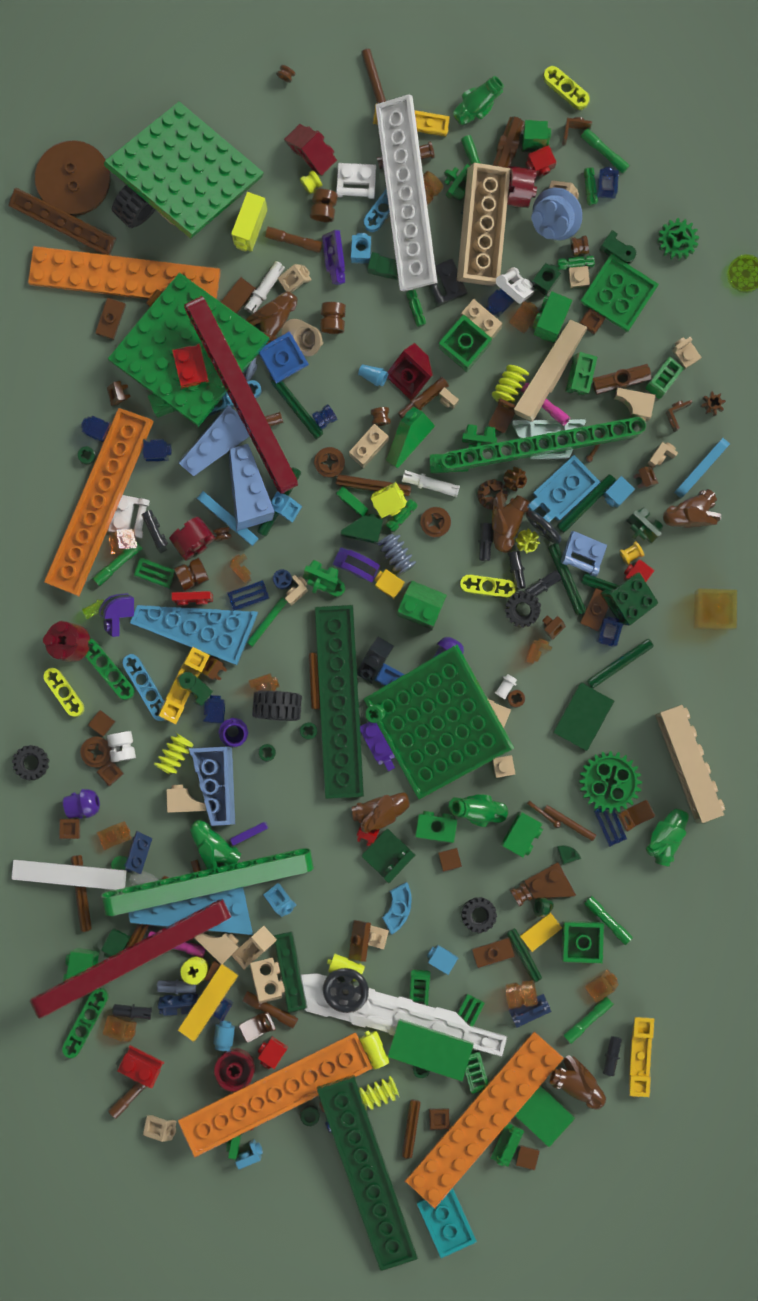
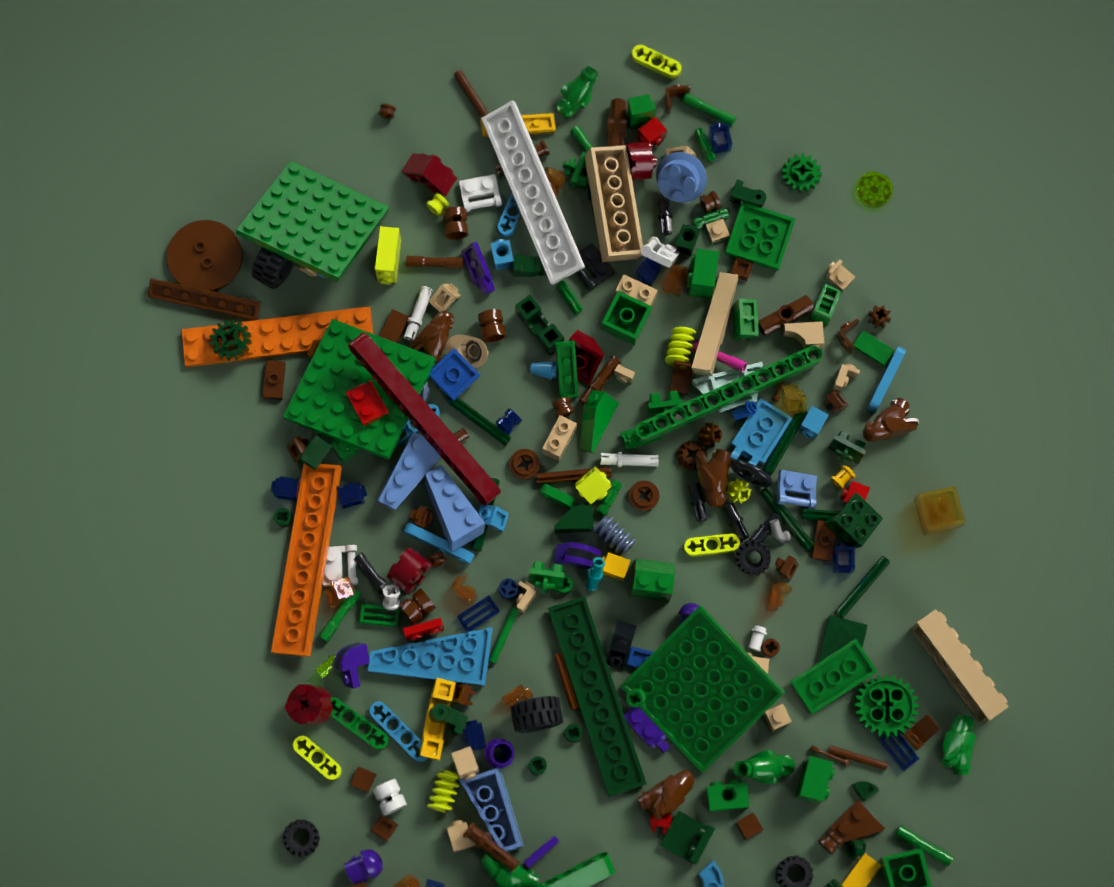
camera: 20 degrees left, 10 degrees down
(71, 274) = (233, 332): none -> dark green gear
(88, 757) = (357, 803): reddish brown gear -> none
(131, 399) = (315, 451): none -> dark green slope
(169, 559) = (391, 600): none -> white bush
(196, 811) = (482, 839): none -> reddish brown pin
(198, 735) = (465, 763): none -> tan arch
(217, 489) = (421, 517): none -> reddish brown gear
(367, 586) = (595, 574): none -> teal pin
(378, 328) = (533, 318): none -> dark green arch
(393, 379) = (567, 369): none -> green tile
(531, 250) = (665, 216): none -> black axle
(553, 590) = (777, 531): none -> light grey arm
(555, 464) = (748, 409): none -> blue pin
(567, 741) = (833, 676): none -> green tile
(605, 464) = (793, 399): none -> clear yellow brick
(698, 433) = (873, 348): none -> green tile

